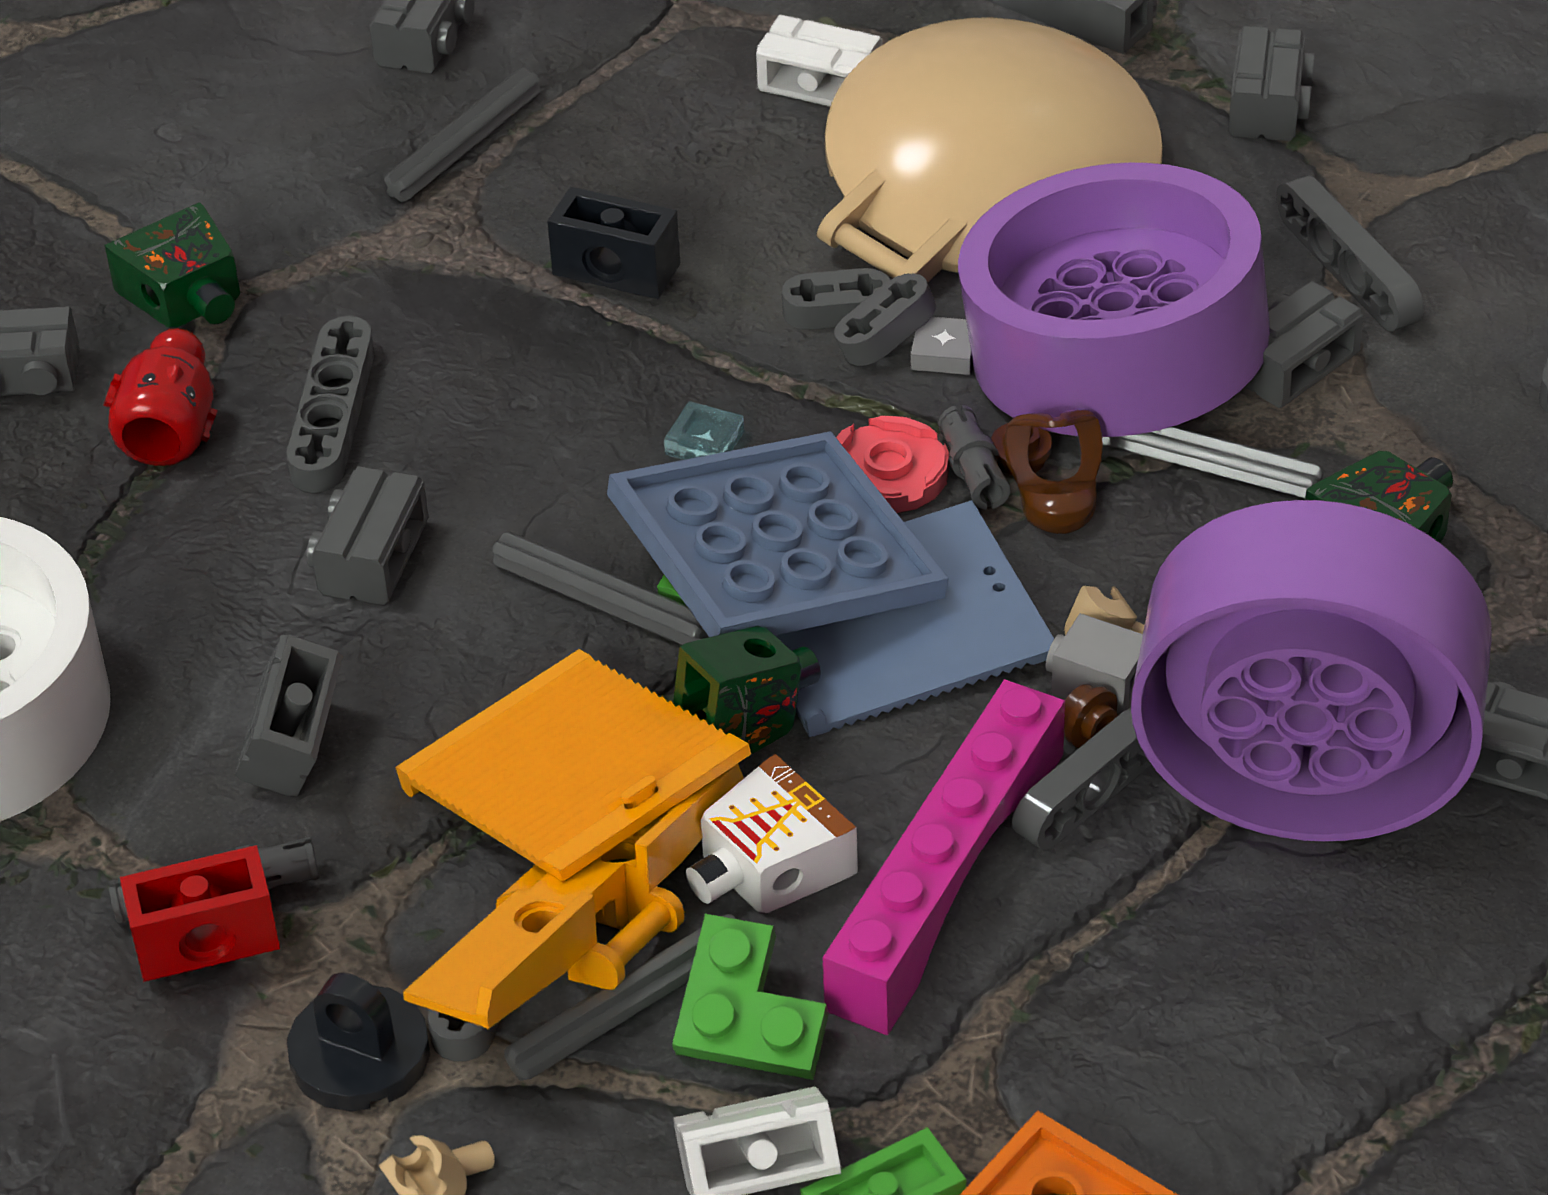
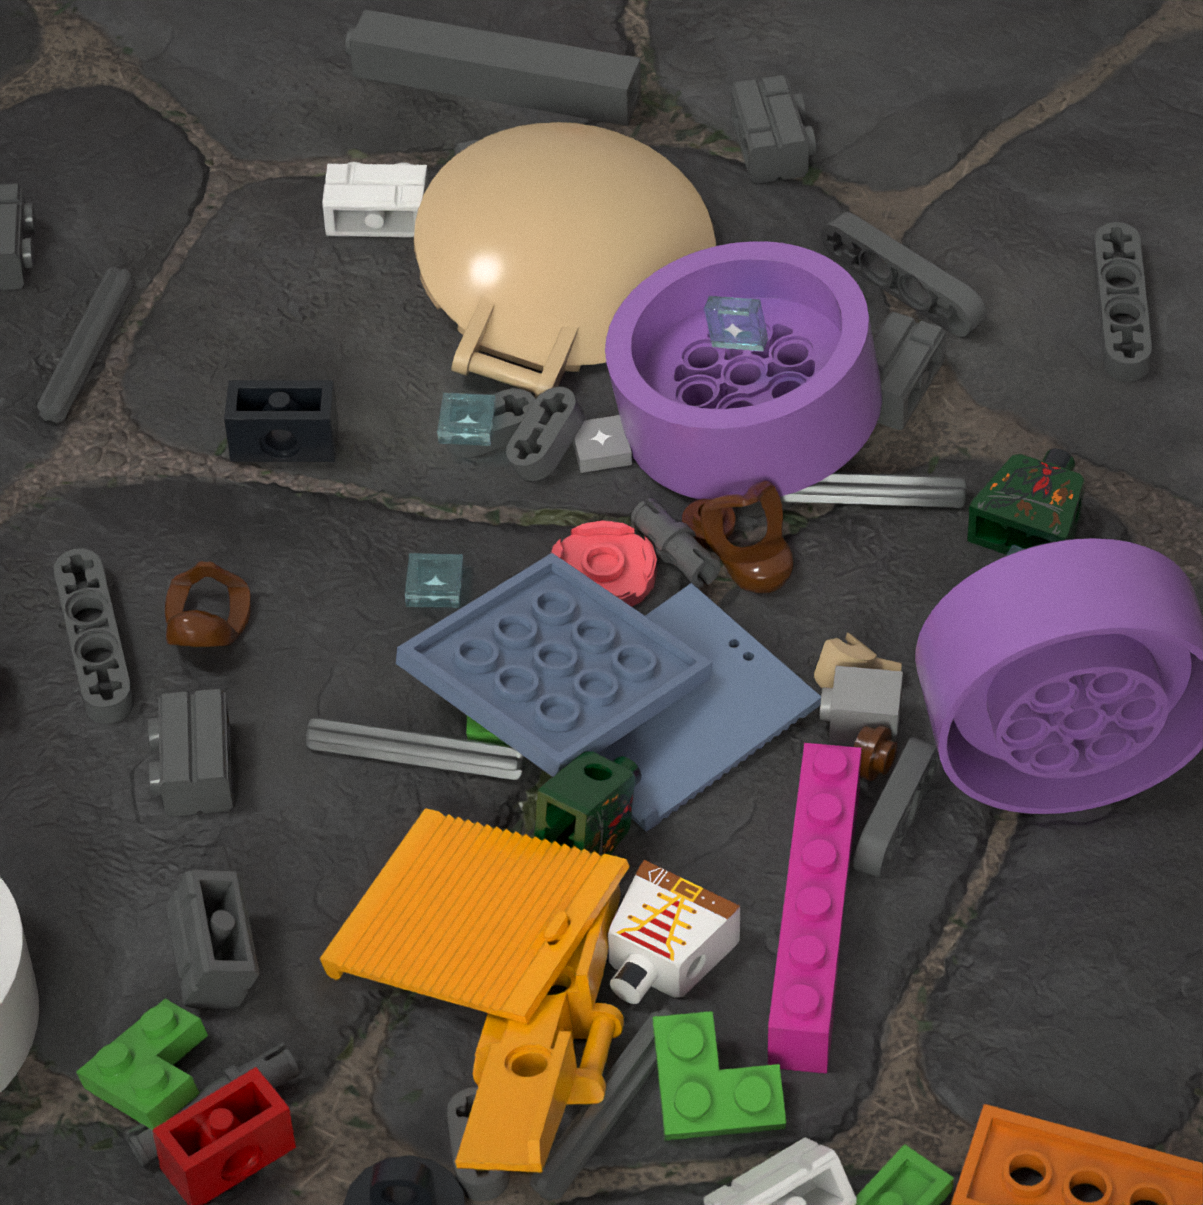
camera: 20 degrees left, 5 degrees up
(155, 825) = (138, 1068): none -> bright green plate
(436, 418) = (199, 627): none -> reddish brown piece
(807, 284) = (466, 419): none -> clear light blue tile
(1104, 232) = (736, 323): none -> clear light blue tile

